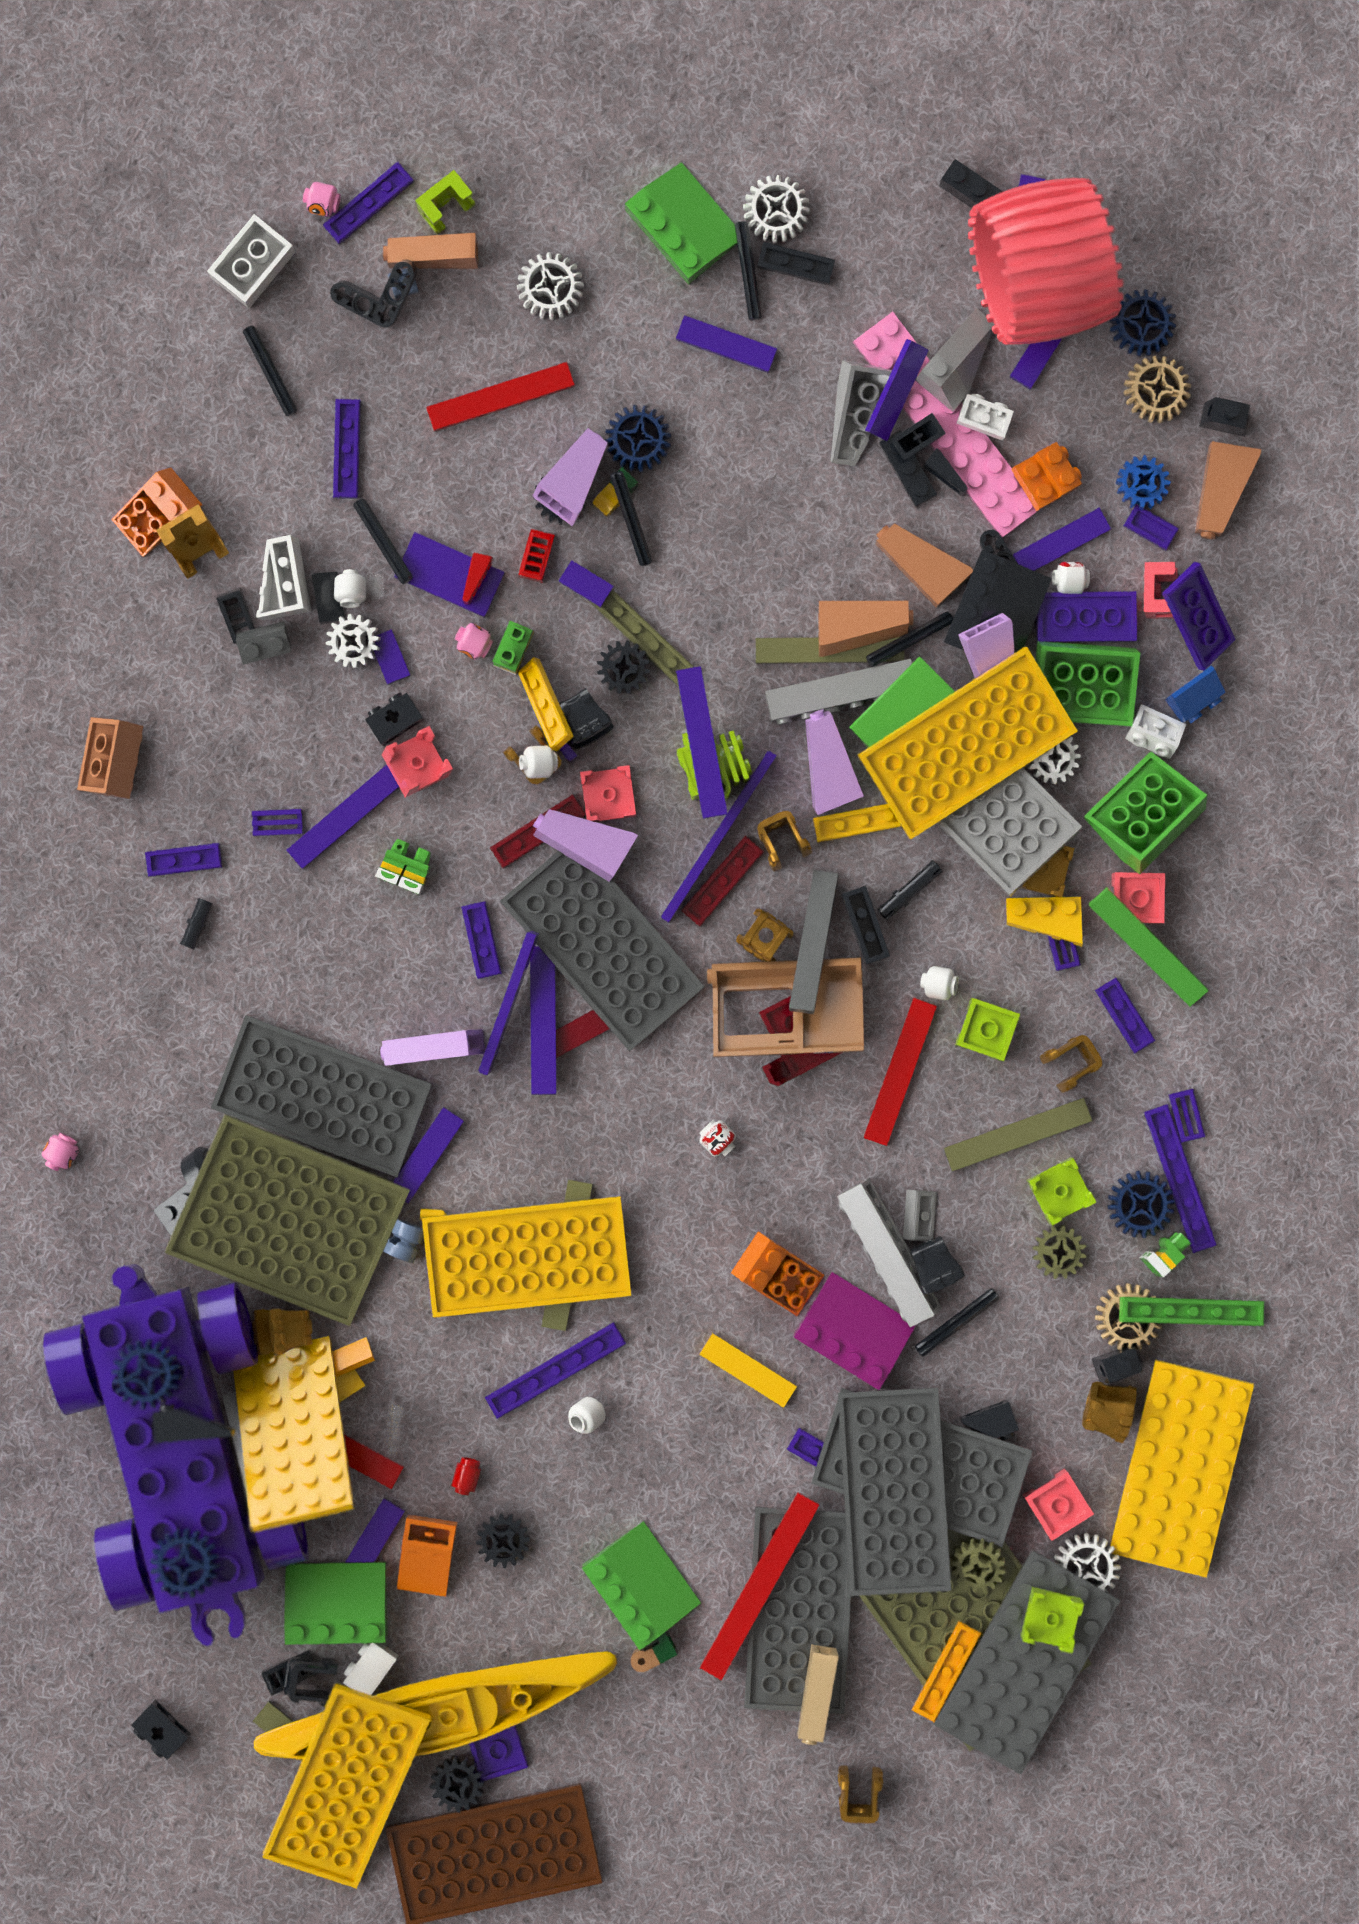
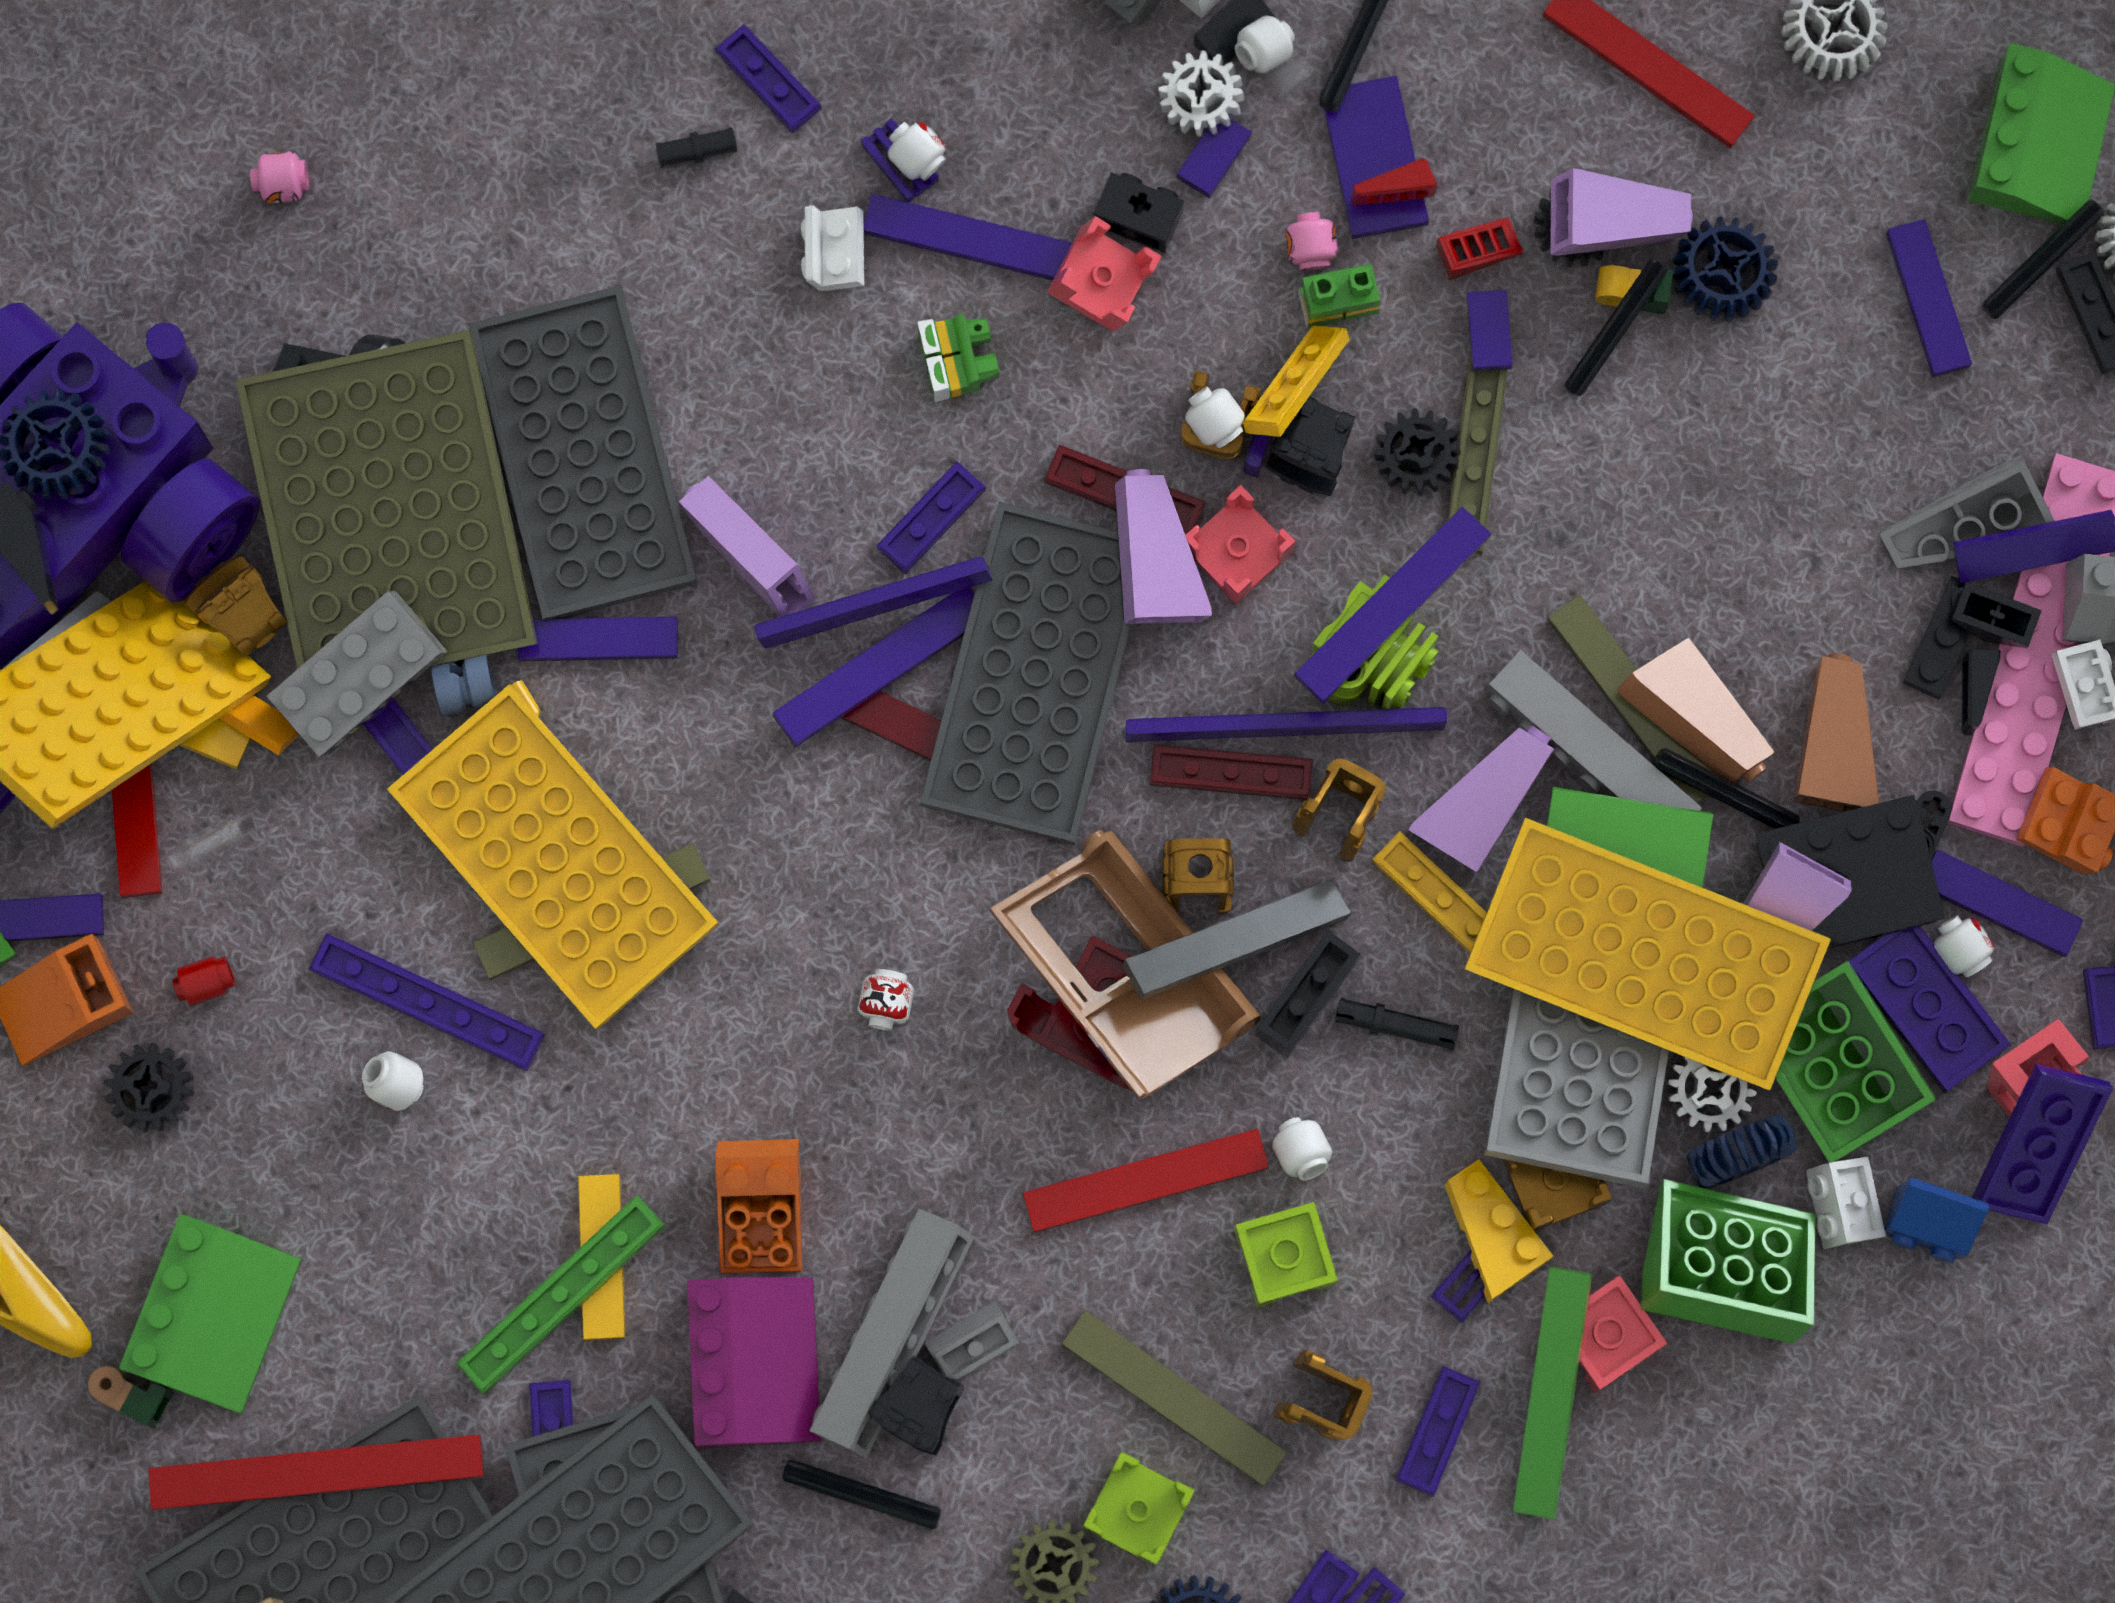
camera: 50 degrees right, 10 degrees down
(281, 812) = (916, 150): none -> white head
(302, 890) = (833, 248): none -> white bracket
(363, 1292) = (357, 673): none -> light grey brick
(405, 1292) = (398, 737): none -> dark purple tile
(754, 1403) = (561, 1294): none -> bright green tile
(1096, 766) = (1742, 1151): none -> dark blue gear

